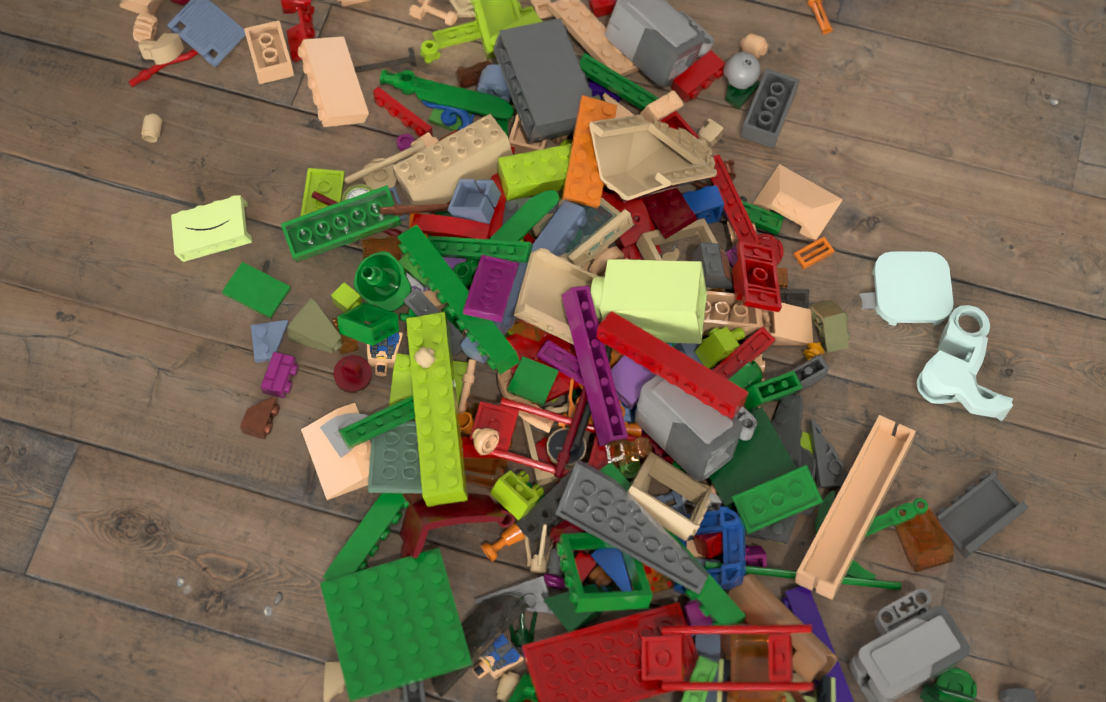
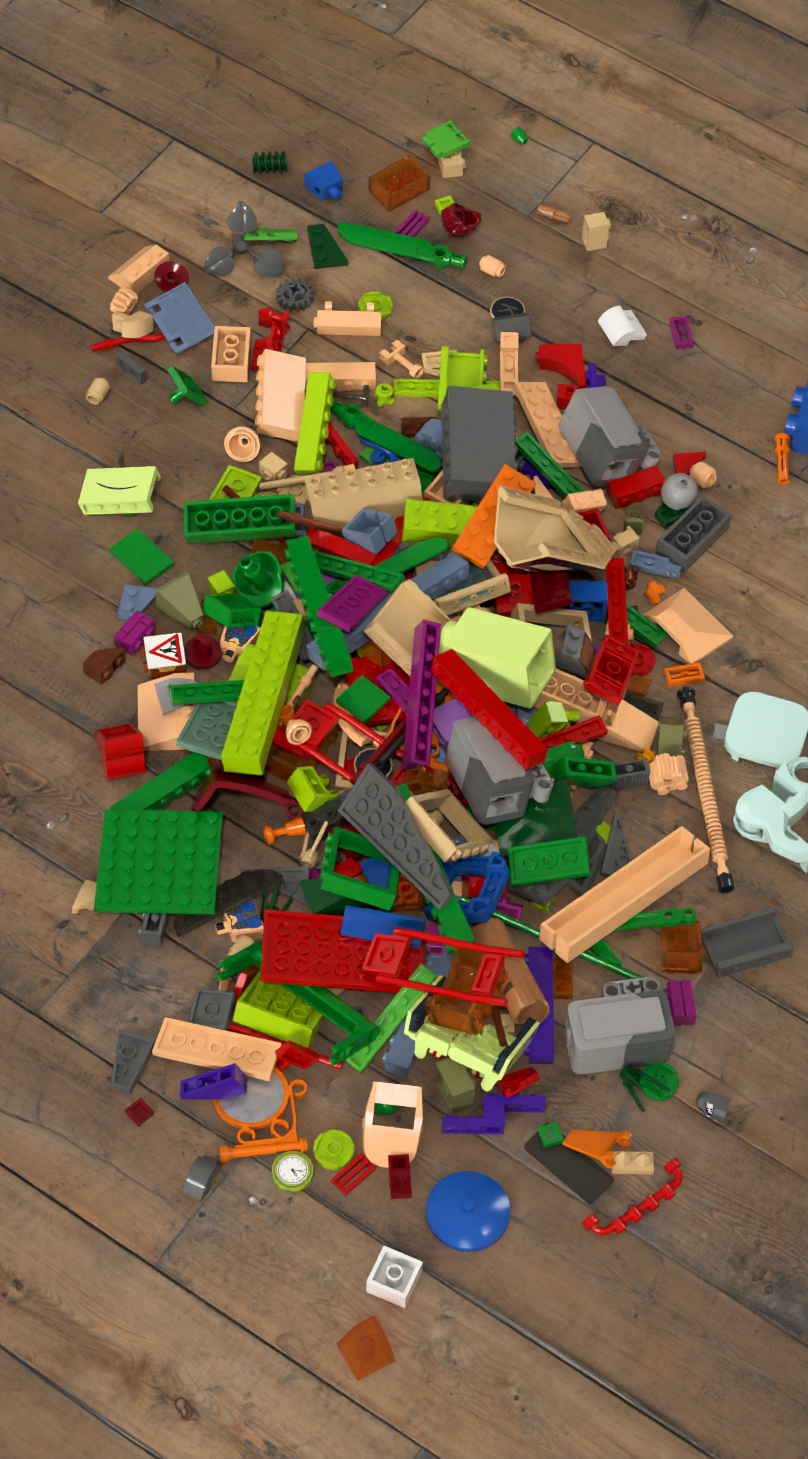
camera: 20 degrees right, 10 degrees down
(175, 93) = (132, 368): none -> dark grey plate
(237, 99) = (186, 387): none -> green tile
(311, 509) = (121, 751): none -> red brick
(314, 148) = (237, 448): none -> light nougat piece
(317, 391) = (163, 655): none -> piece
(352, 158) = (272, 467): none -> tan brick
(377, 102) = (314, 423): none -> lime brick
(382, 44) = (348, 375): none -> light nougat brick
(425, 357) = (269, 645): tan piece -> none
(642, 624) = (364, 924): none -> blue panel
(709, 109) = (634, 518): none -> olive slope
(732, 38) = (684, 461): none -> red tile
(744, 149) = (654, 564): none -> sand blue hinge
(754, 177) = (653, 592): none -> orange piece
(827, 612) = (562, 979): none -> clear orange slope
(844, 363) = (668, 773): none -> light nougat brick
(881, 367) = (706, 790): none -> light nougat hose
(946, 595) = (681, 1002): none -> magenta brick

